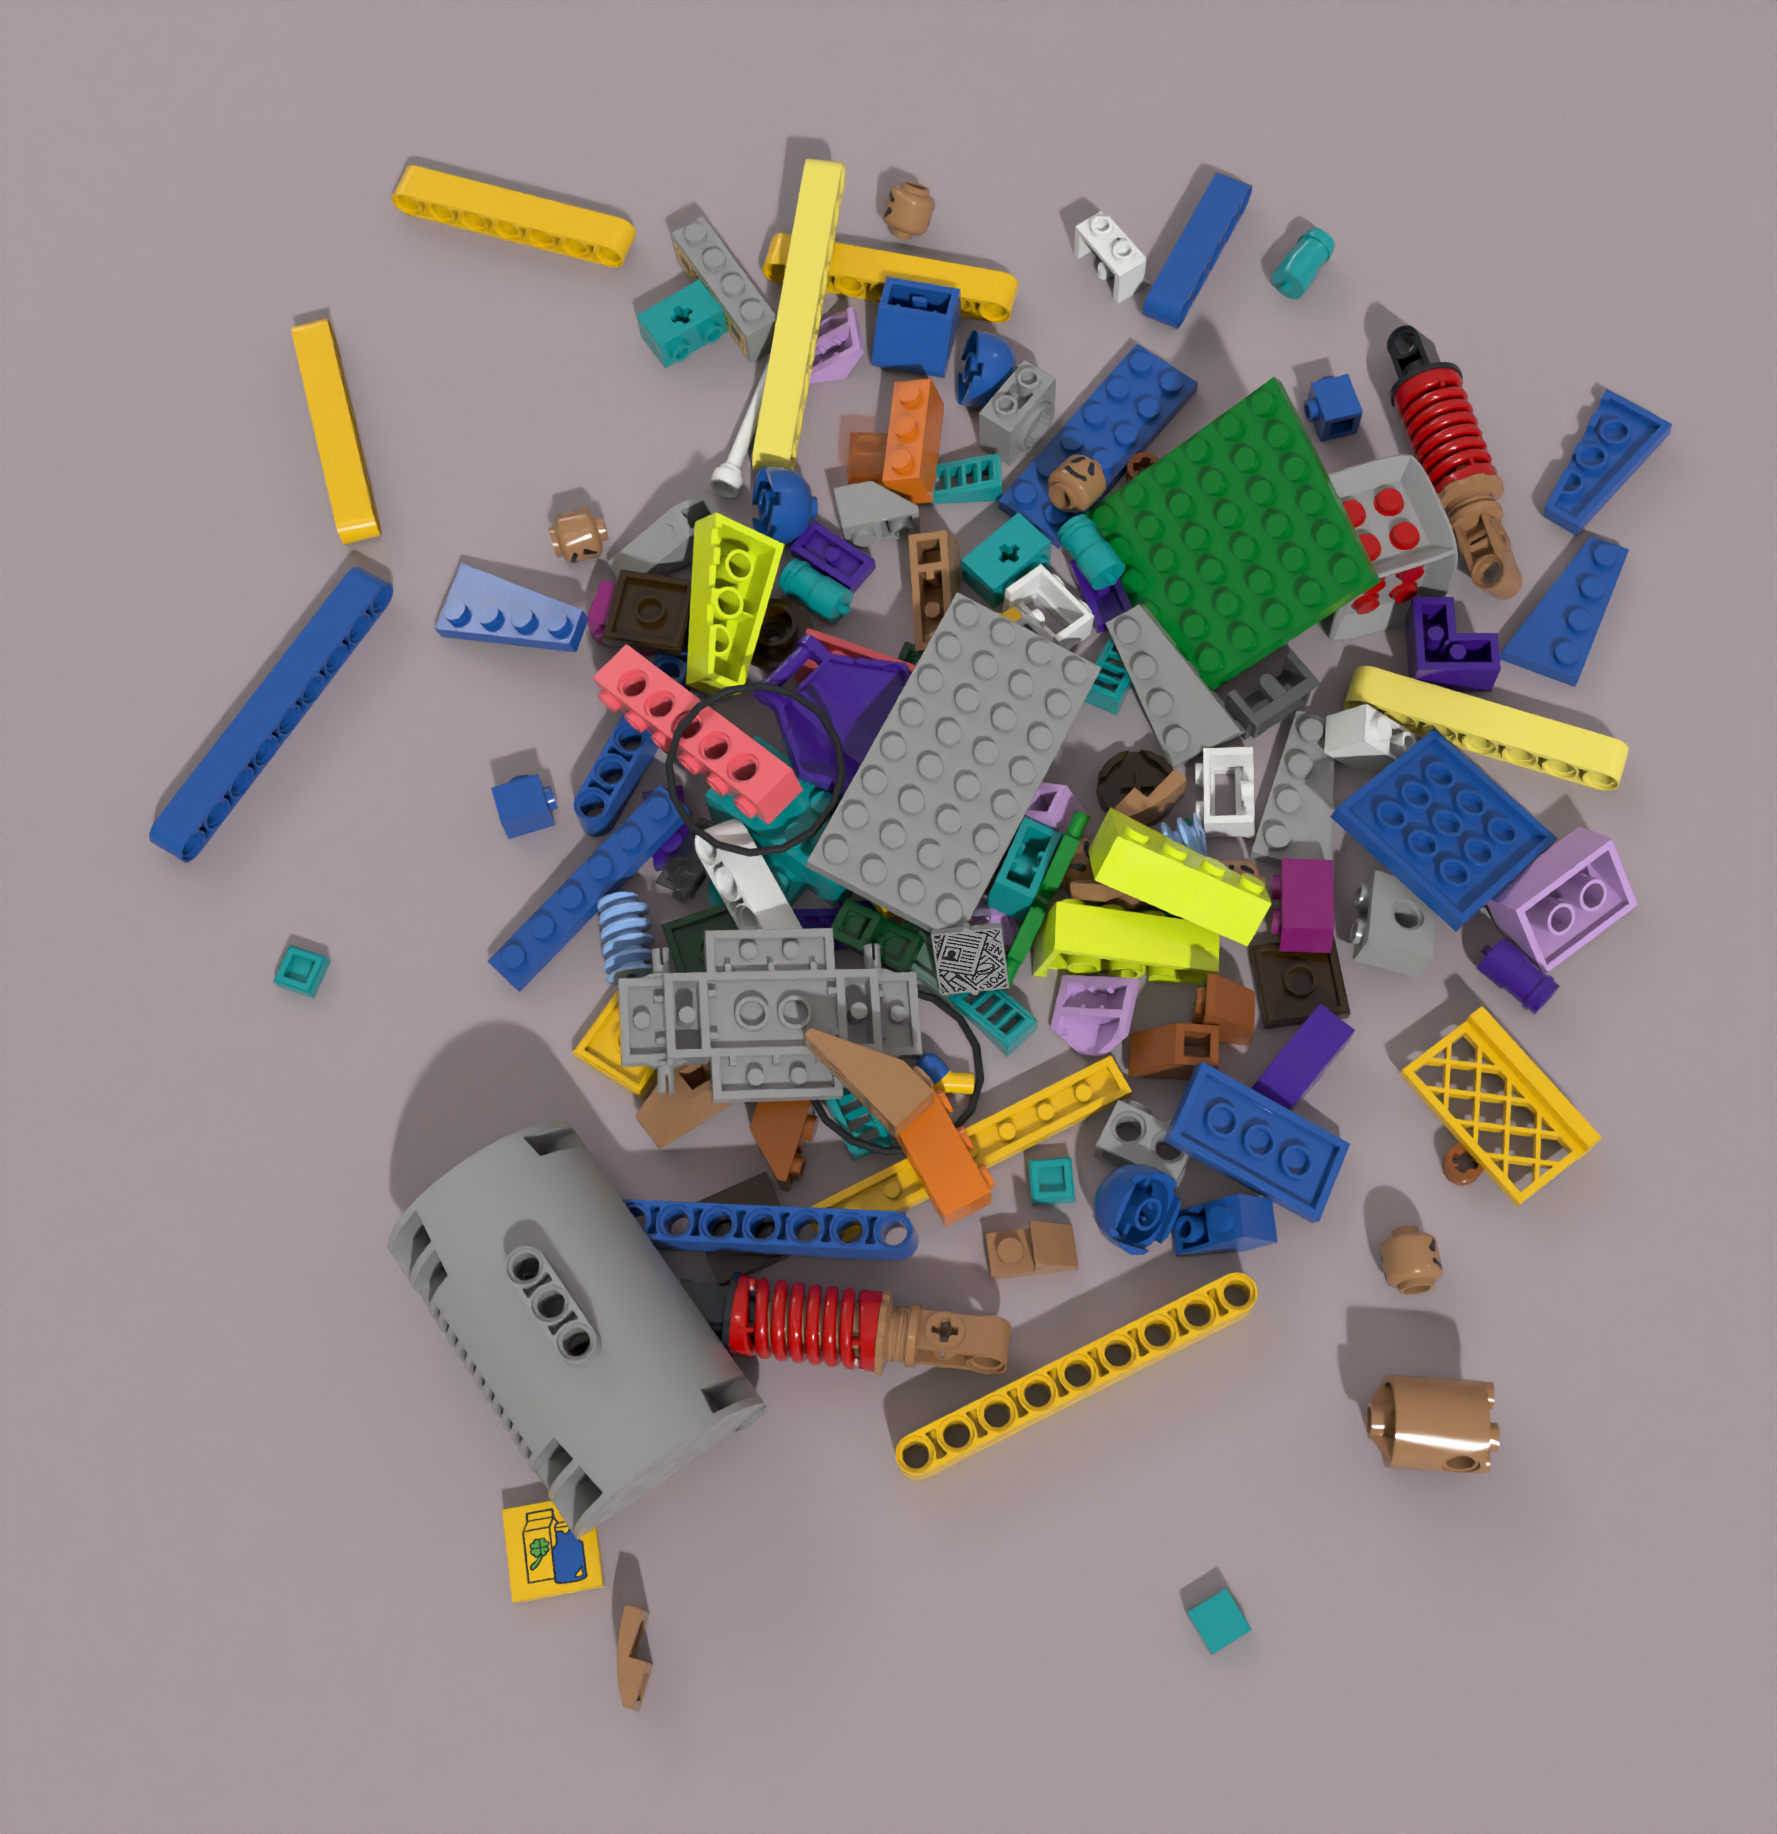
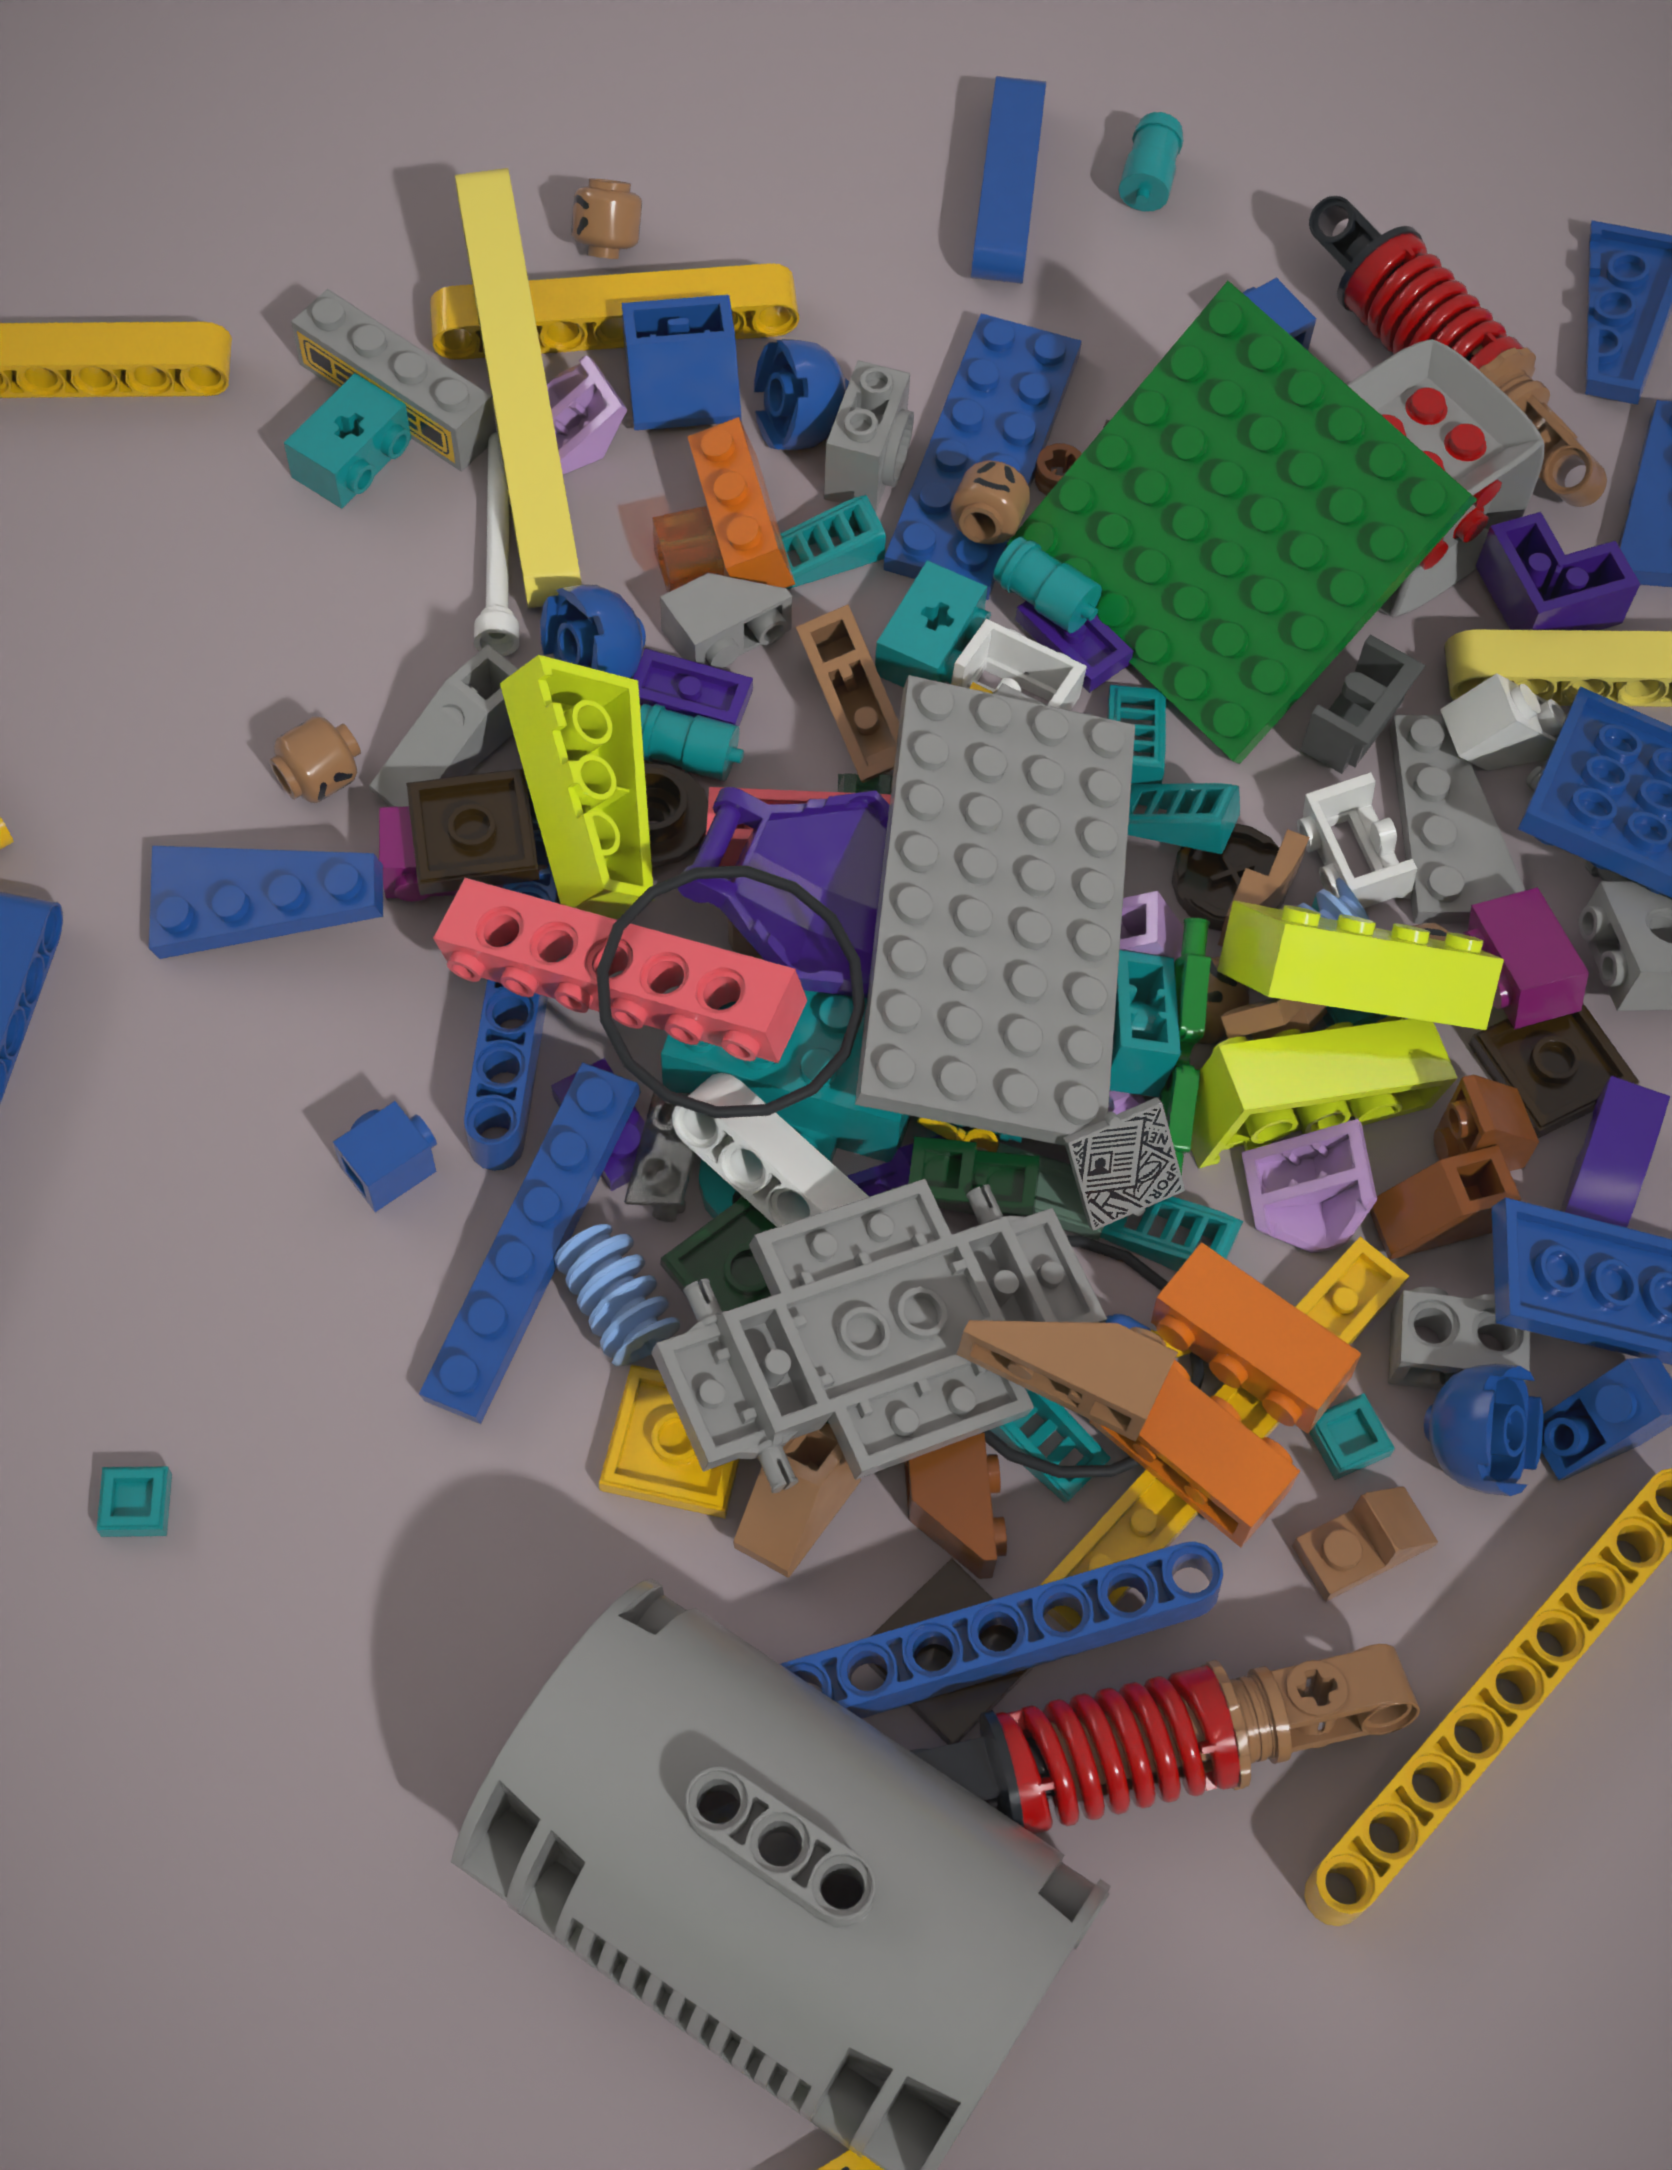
camera: 30 degrees left, 5 degrees down
(1004, 1099) = (1253, 1338): none -> orange brick
(1117, 253) = (911, 202): white window -> none
(1129, 755) = (1196, 814): none -> teal slope
(1170, 689) = (1229, 730): light grey wing -> none

